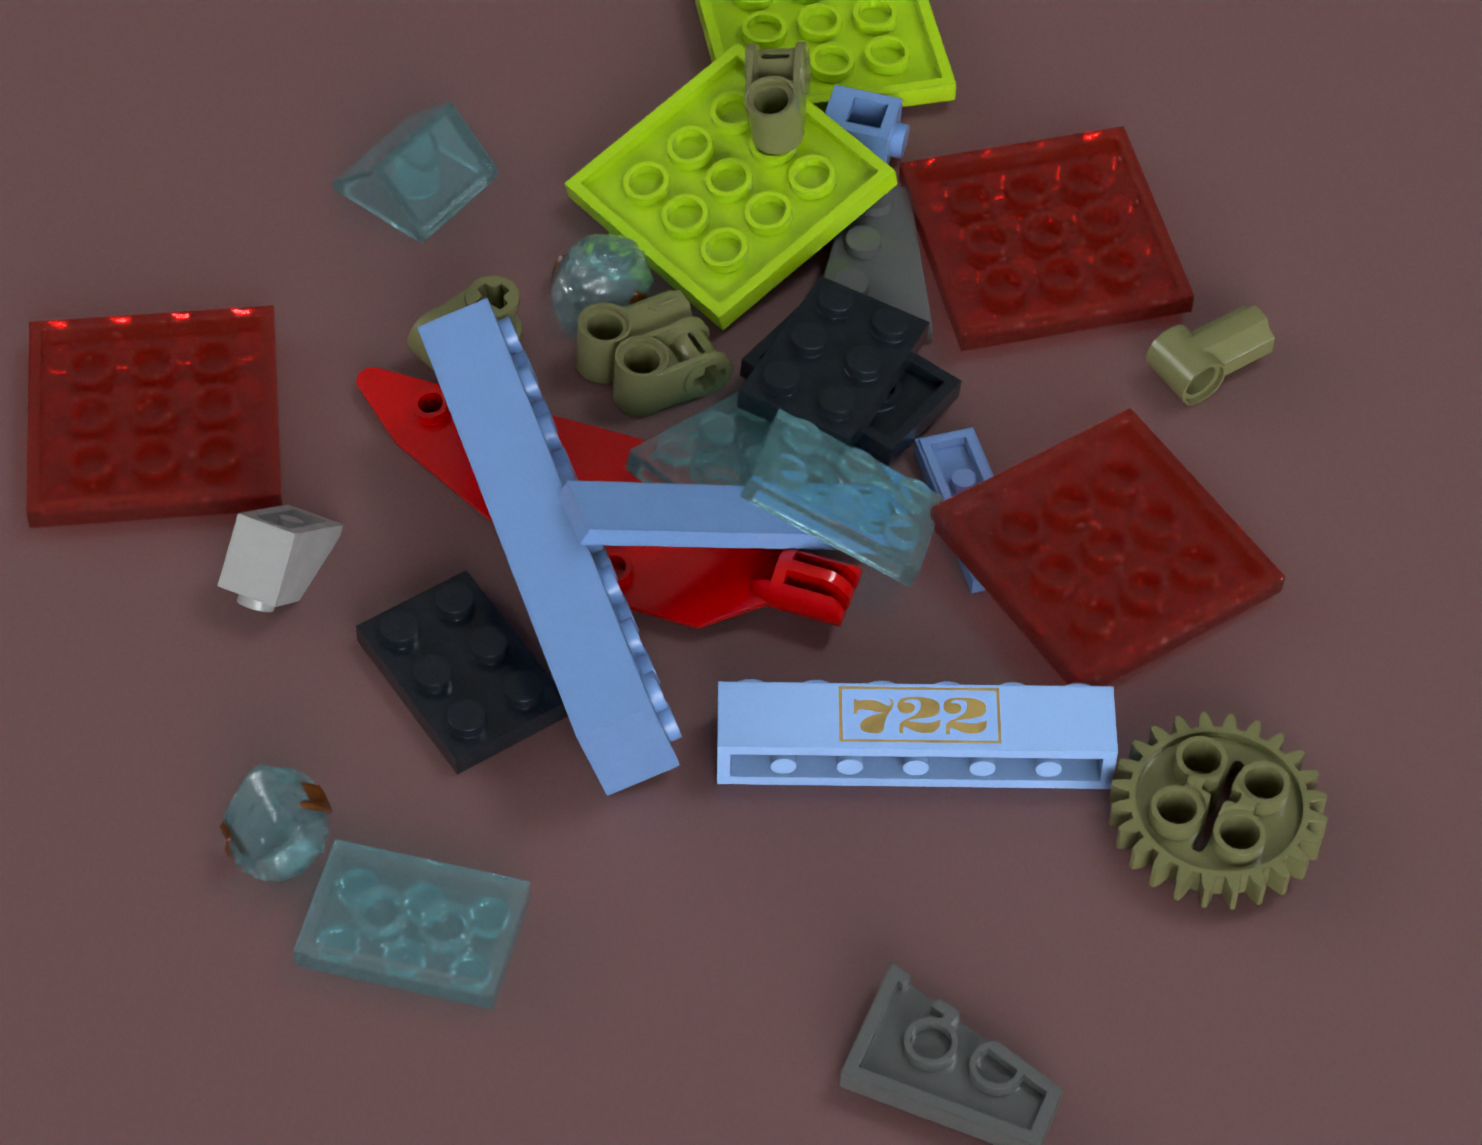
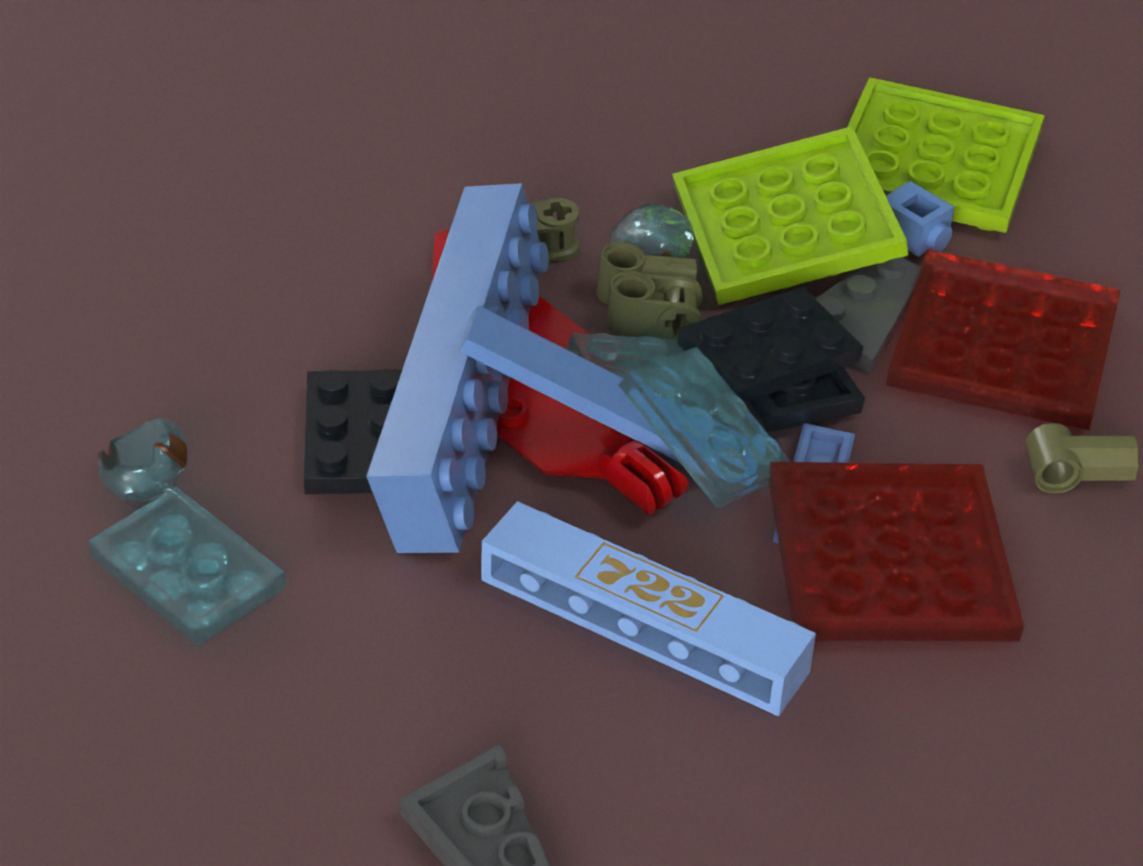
camera: 30 degrees right, 10 degrees down
(153, 416) = (283, 202): clear red plate -> none
(276, 555) = (289, 306): light grey slope -> none
(420, 172) = (582, 134): clear light blue slope -> none
(777, 95) = (851, 160): olive piece -> none
(1161, 785) = (844, 762): olive gear -> none

